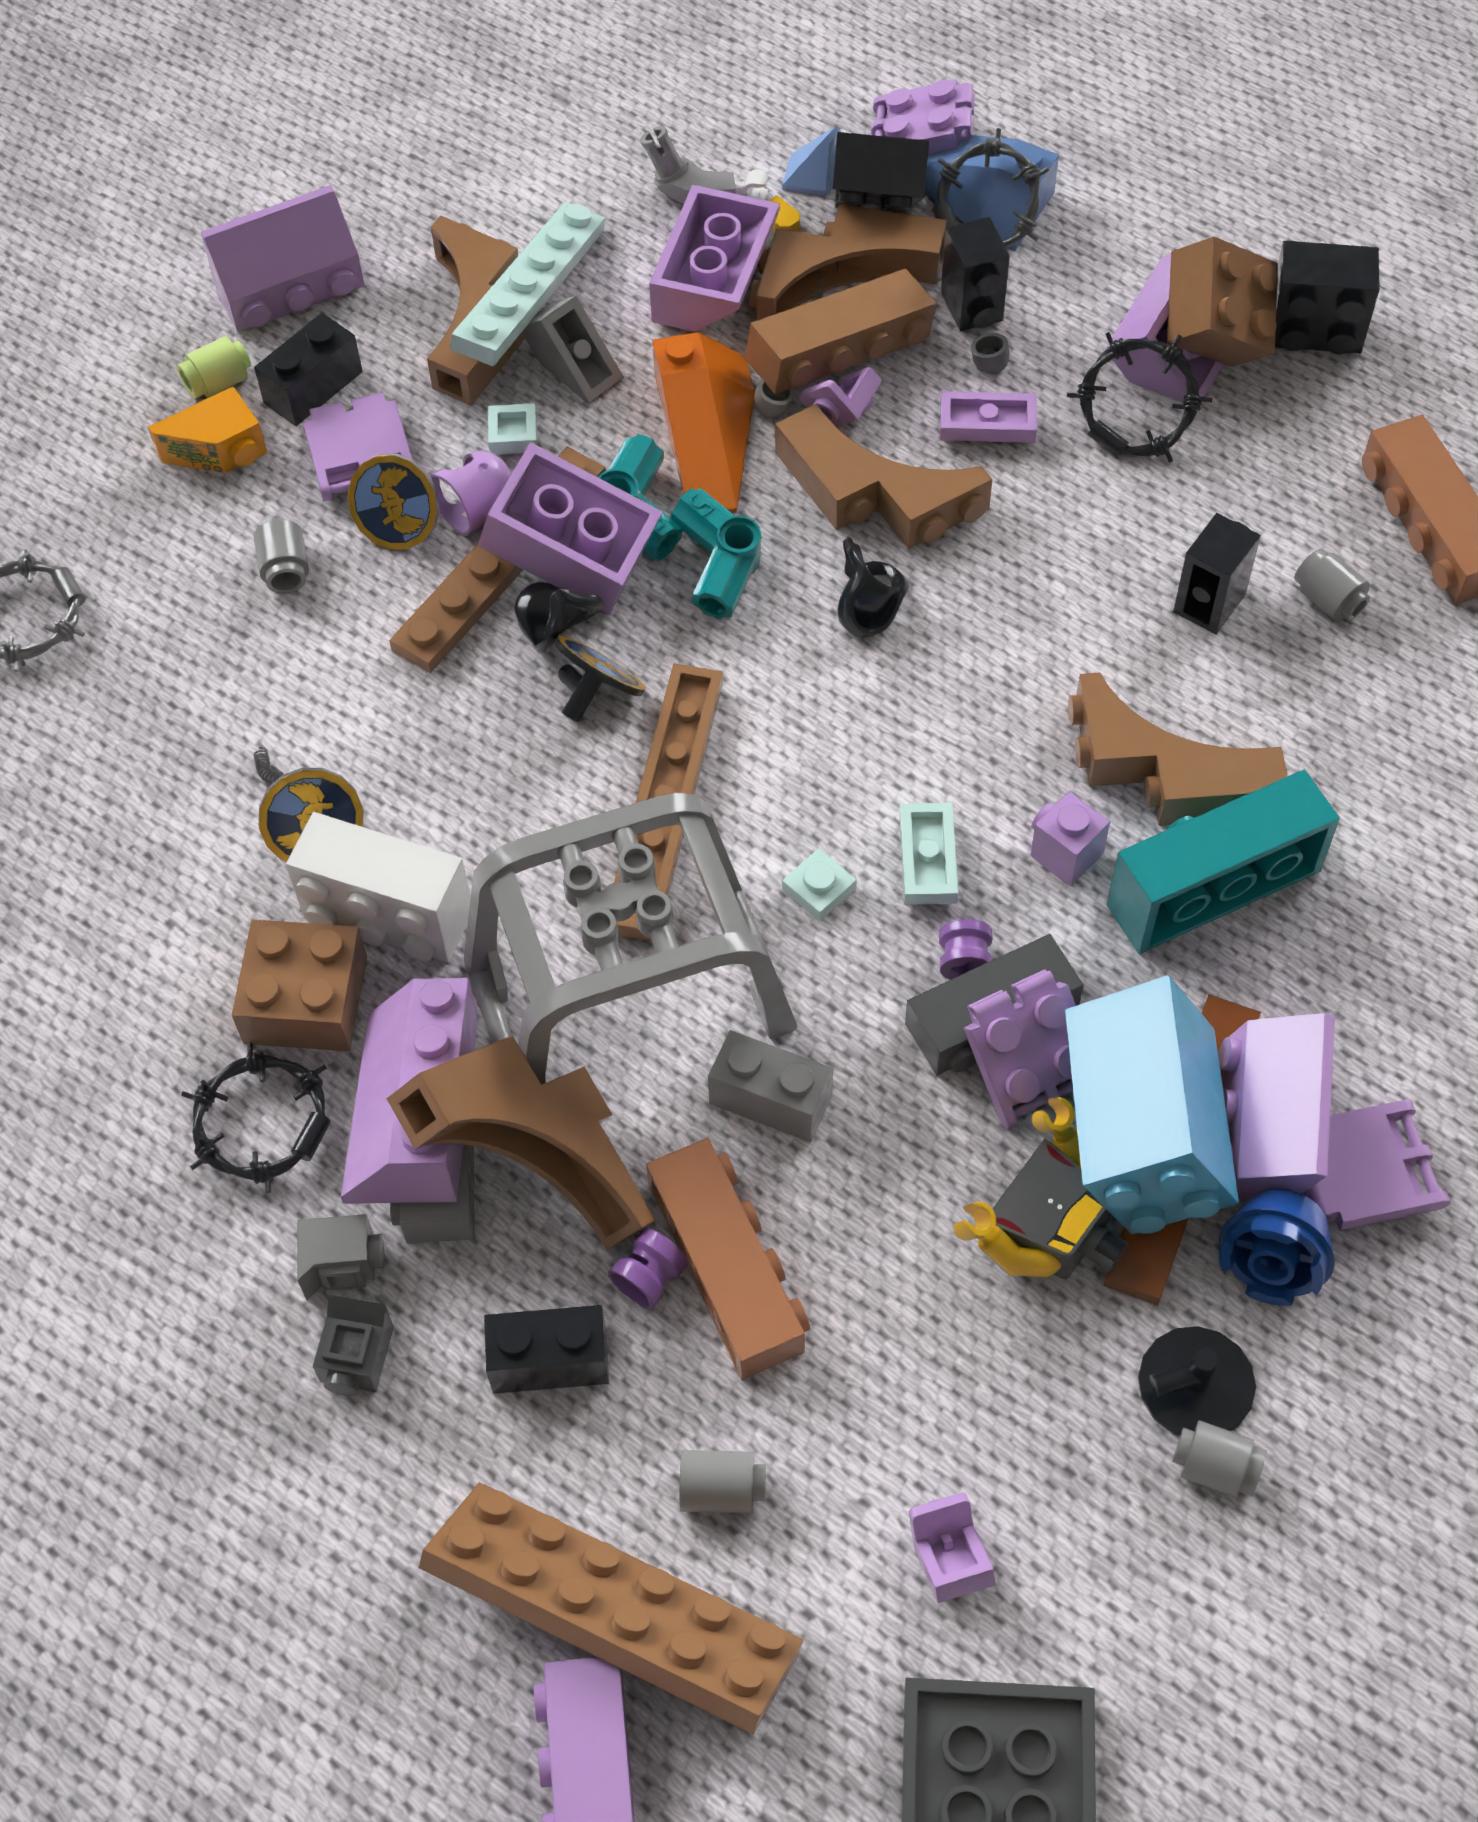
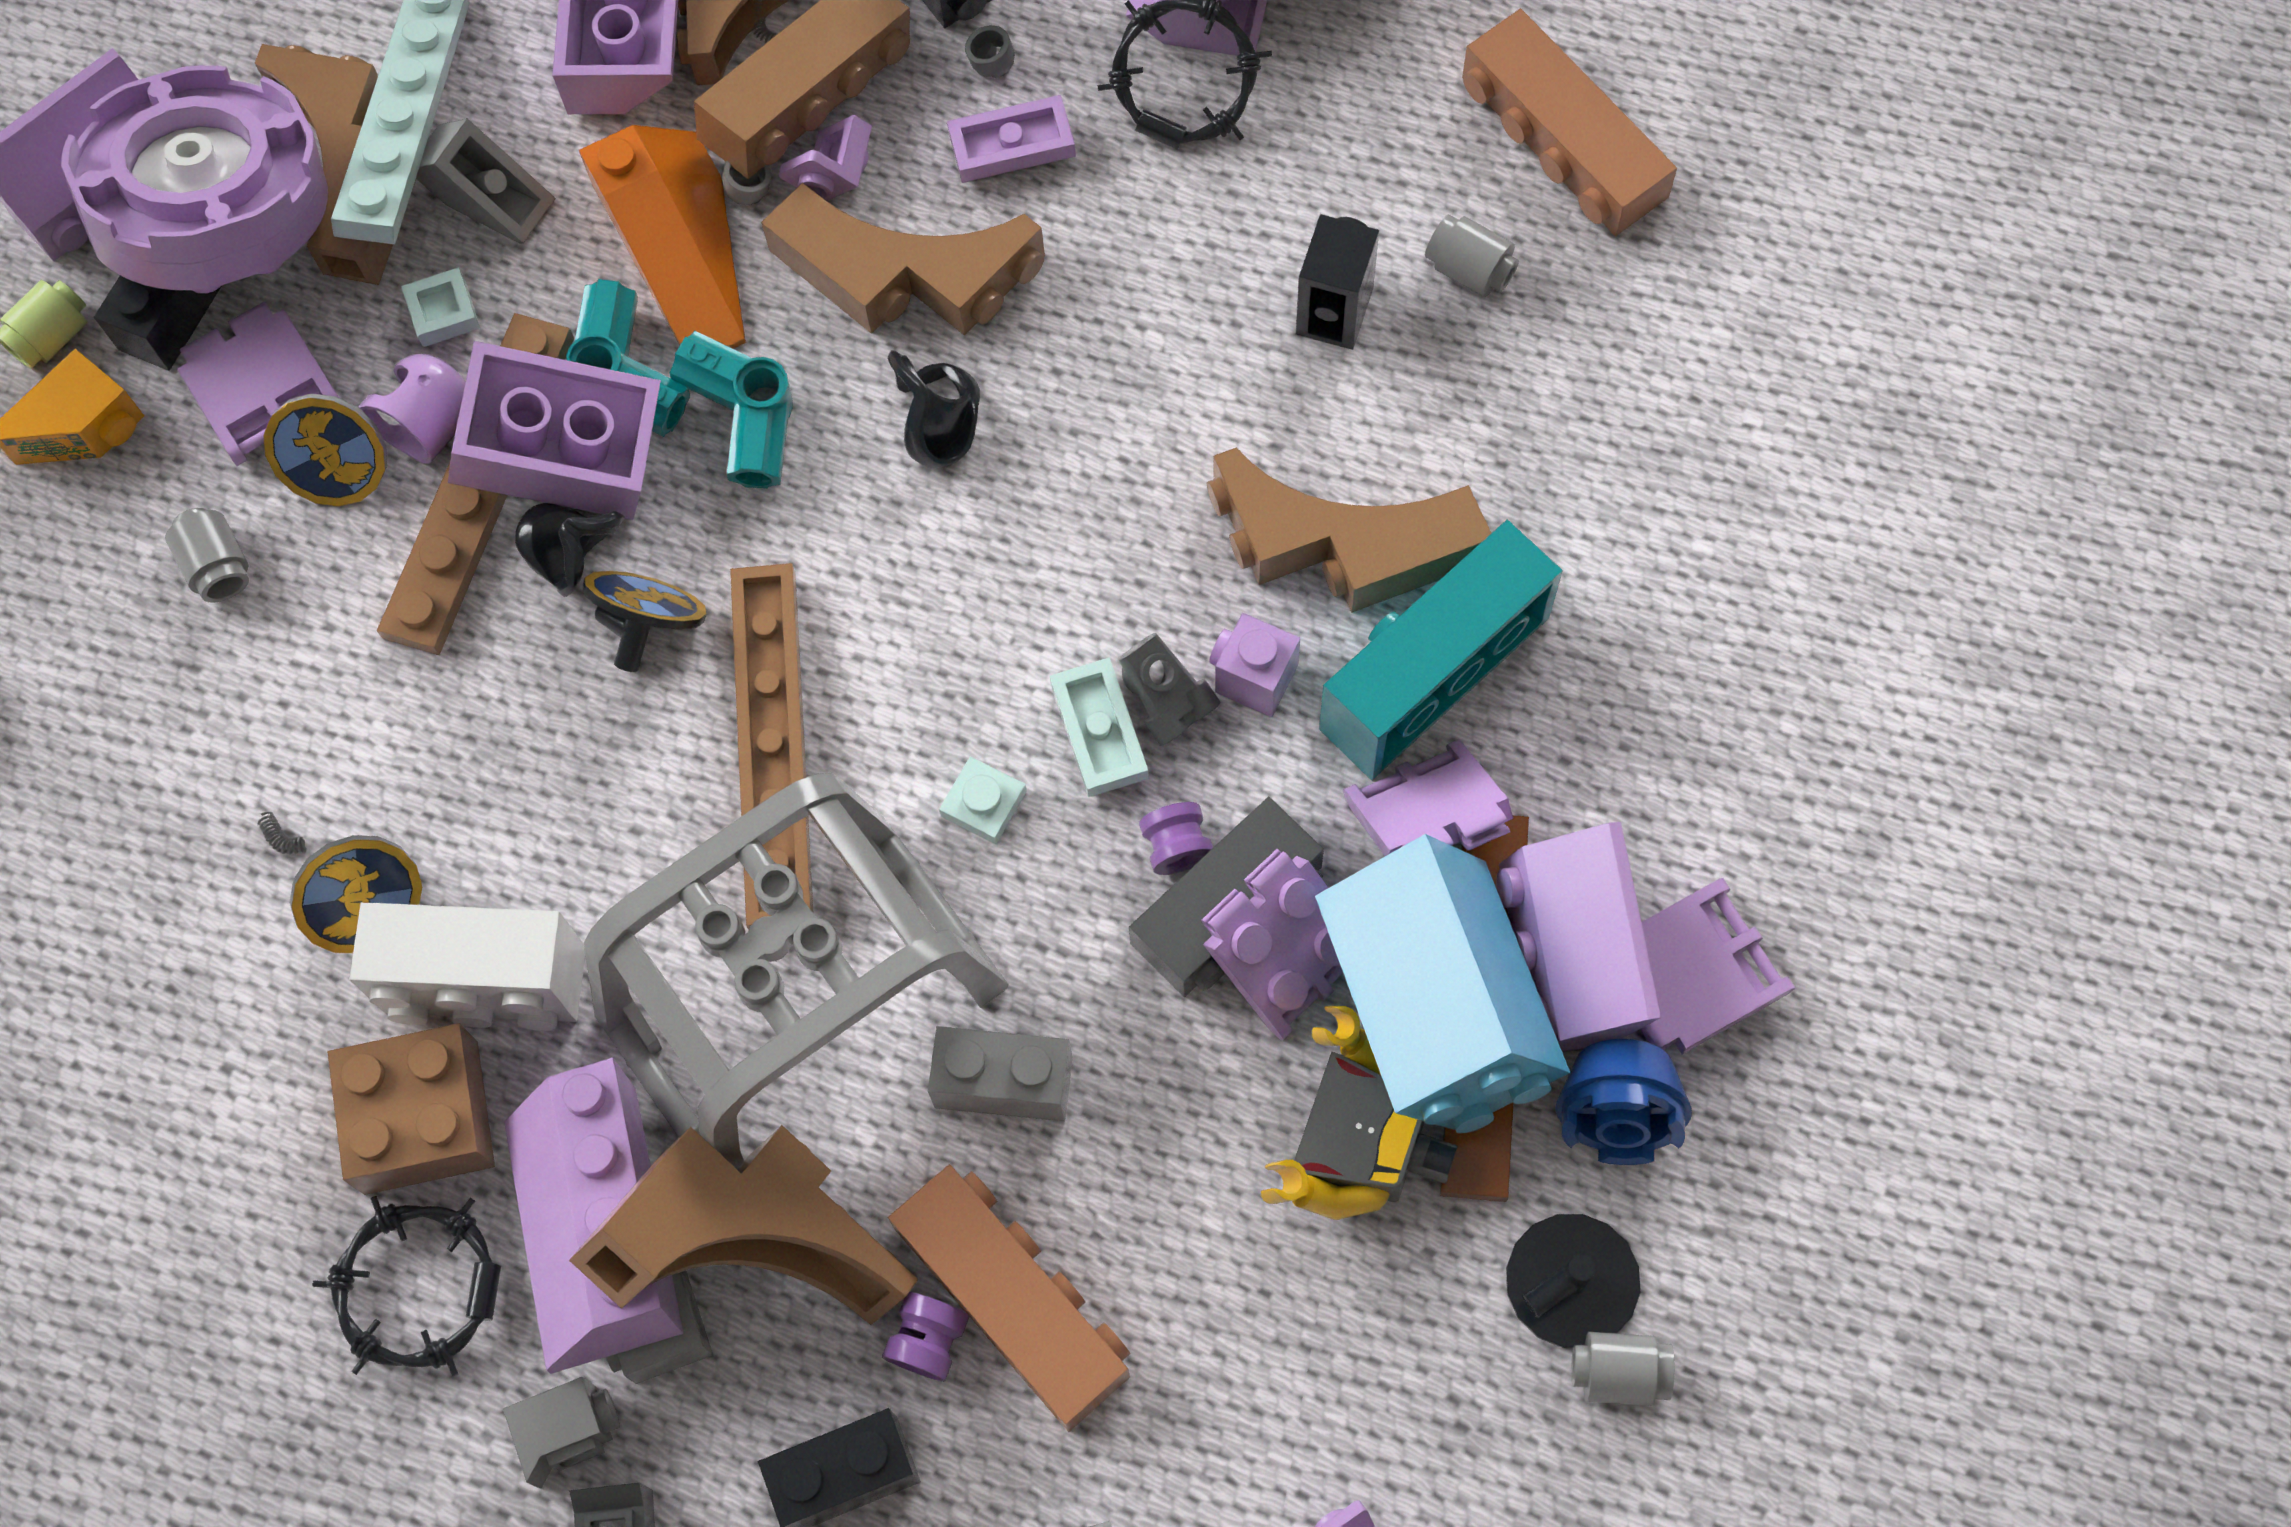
camera: 15 degrees left, 10 degrees up
(362, 286) = (196, 179): none -> lavender piece
(990, 849) = (1176, 700): none -> dark grey plate
(1202, 973) = (1439, 797): none -> lavender plate

